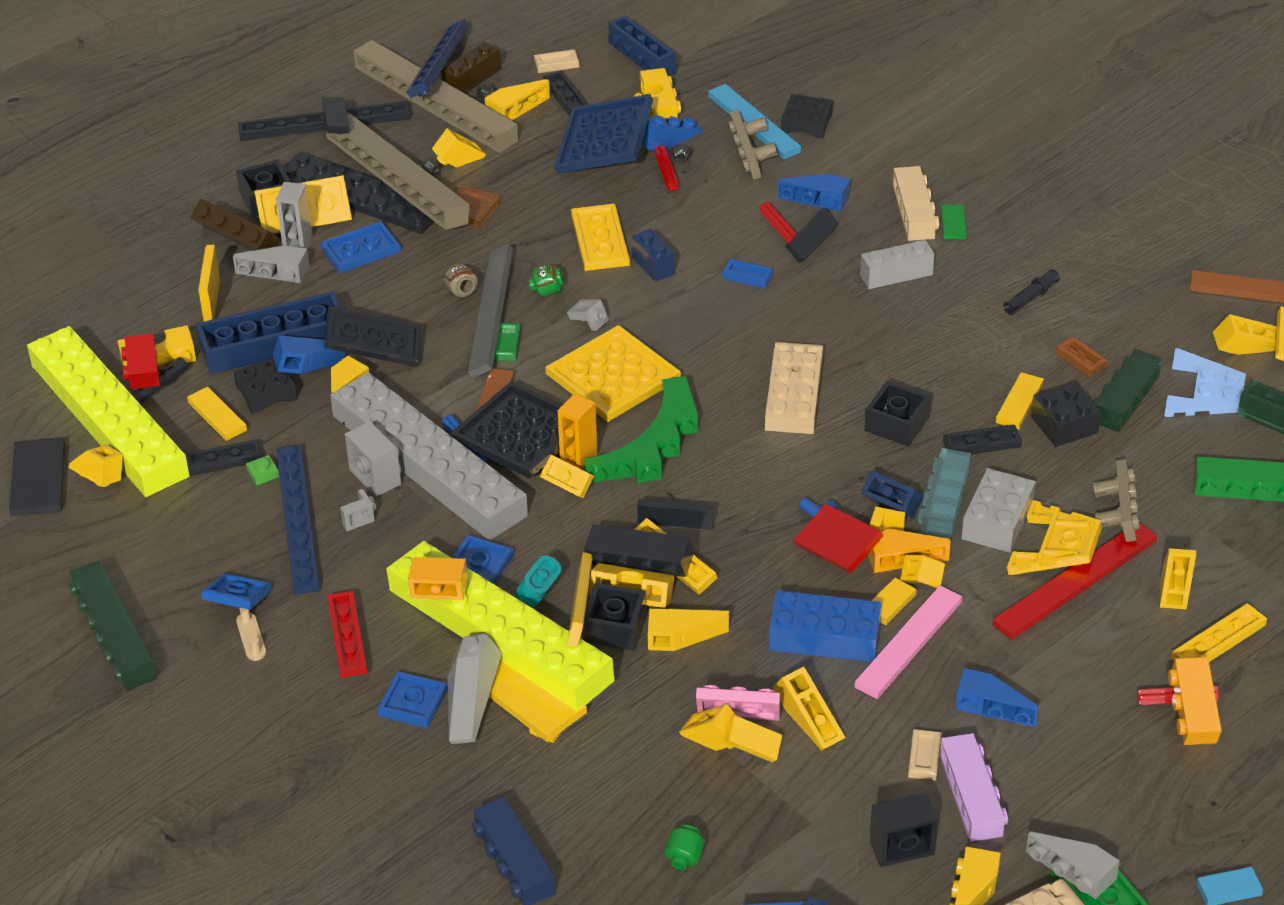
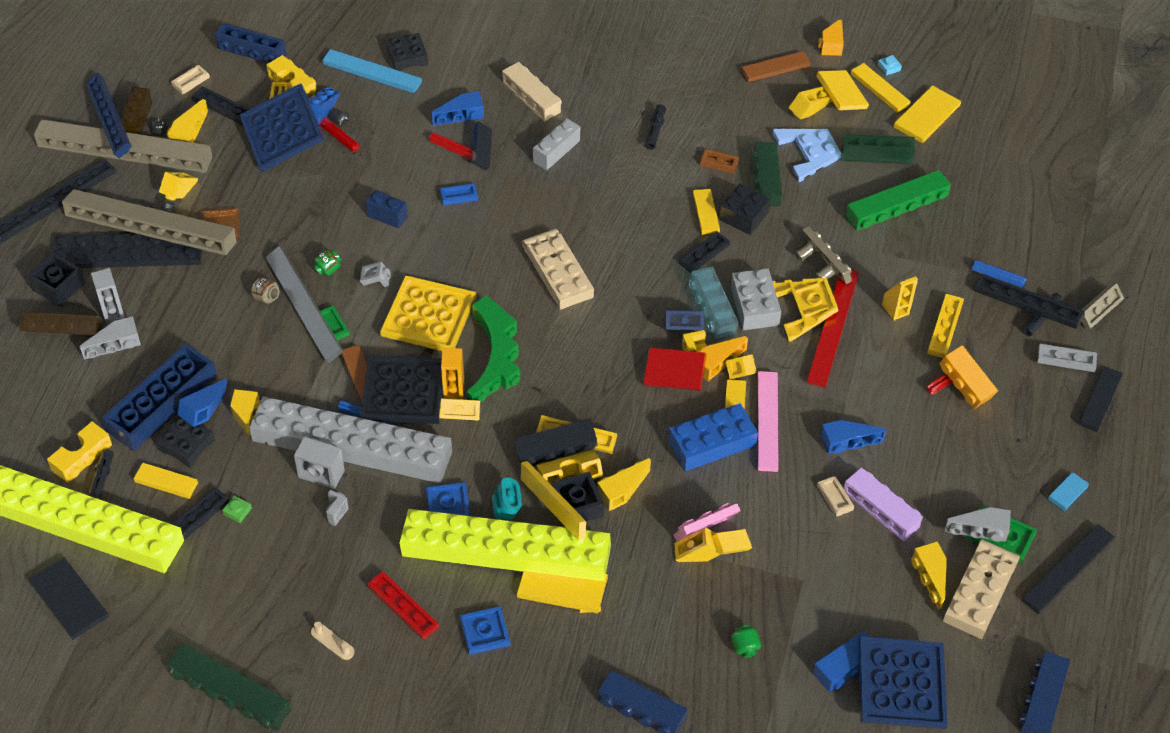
camera: 35 degrees left, 10 degrees up
(99, 465) = (115, 566): yellow slope -> none
(141, 361) = (84, 468): red brick -> none
(209, 283) = (81, 380): yellow tile -> none
(236, 591) = (300, 614): blue tile -> none
(297, 520) = (294, 534): dark blue plate -> none
(326, 203) = (80, 289): yellow tile -> none
(335, 115) = (68, 196): black tile -> none
(360, 247) = (164, 295): blue tile -> none
(372, 336) = (240, 365): black tile -> none
(438, 578) = (451, 534): light orange brick -> none
(470, 685) = (518, 599): light grey wedge -> none
(600, 237) = (334, 210): yellow tile -> none
(676, 514) = (554, 402): black tile -> none
(742, 134) = (374, 84): dark tan plate -> none
(808, 708) = (749, 501): yellow slope -> none
(811, 508) = (640, 354): blue arm -> none
(897, 413) = (643, 258): black brick -> none
(903, 829) = (870, 556): black brick -> none
(953, 221) = (568, 97): green tile -> none

